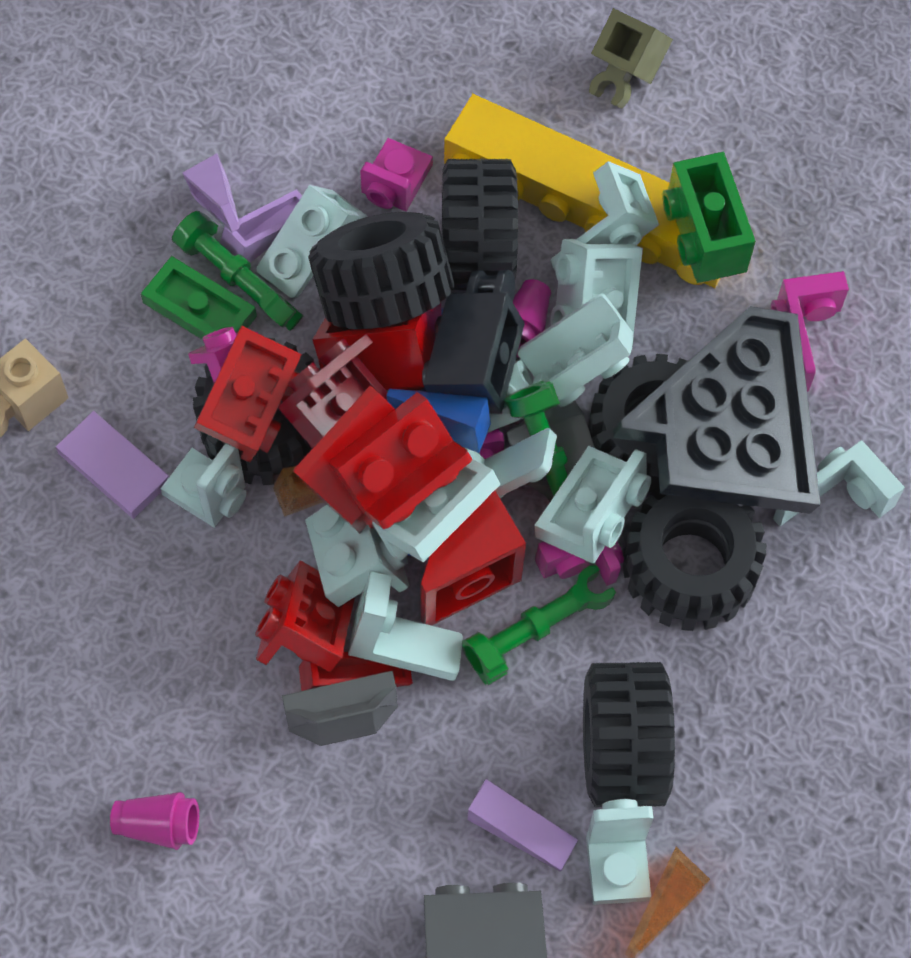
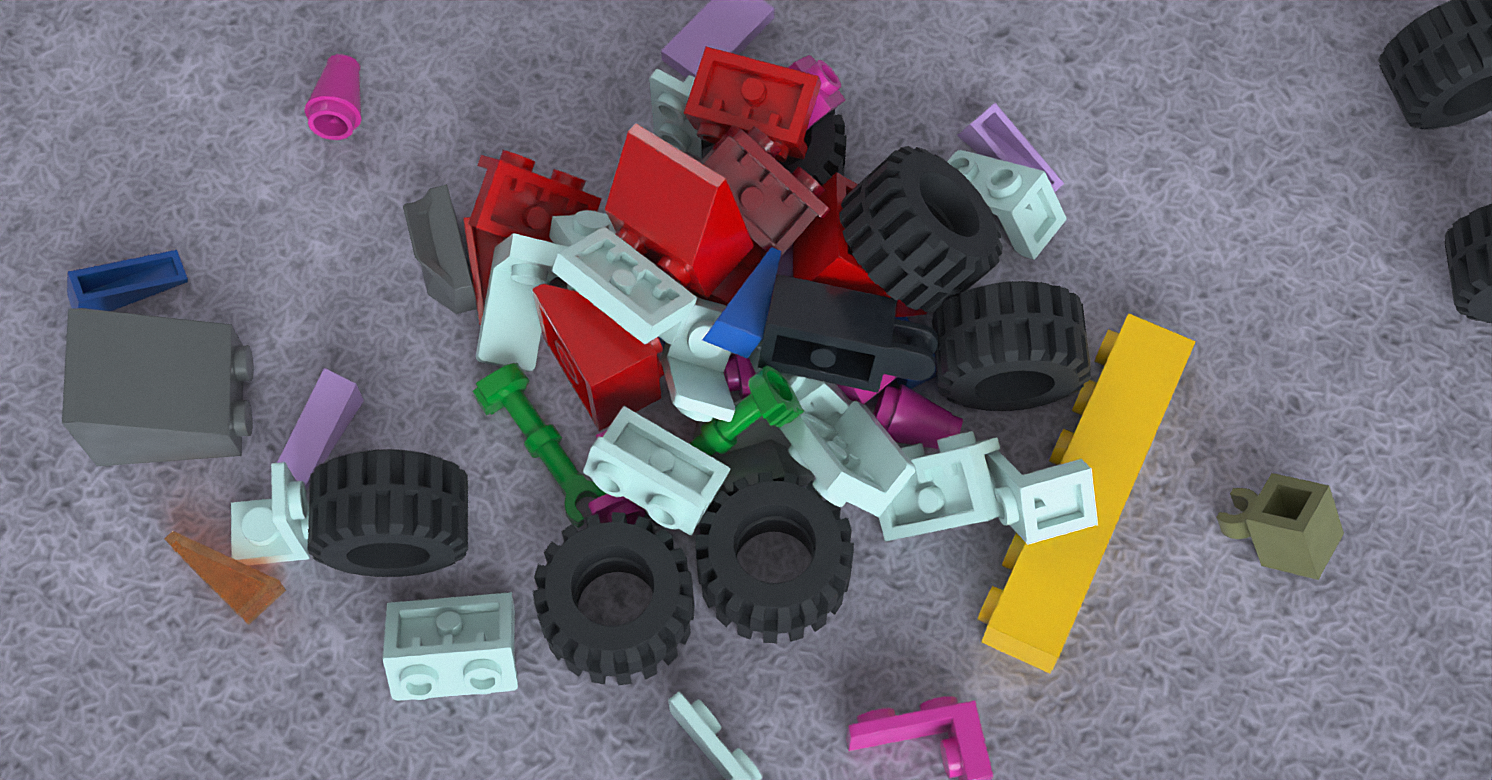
camera: 90 degrees right, 0 degrees up
(195, 300) = (904, 93): green plate -> none
(196, 235) = (988, 84): green piece -> none
(212, 191) = (1040, 93): lavender piece -> none
(395, 175) = (1094, 277): dark pink bracket -> none
(400, 462) = (656, 232): red bracket -> none
(709, 217) = (1030, 590): green brick -> none
(729, 697) = (450, 646): none -> light aqua bracket
(735, 419) = (765, 623): wing -> none

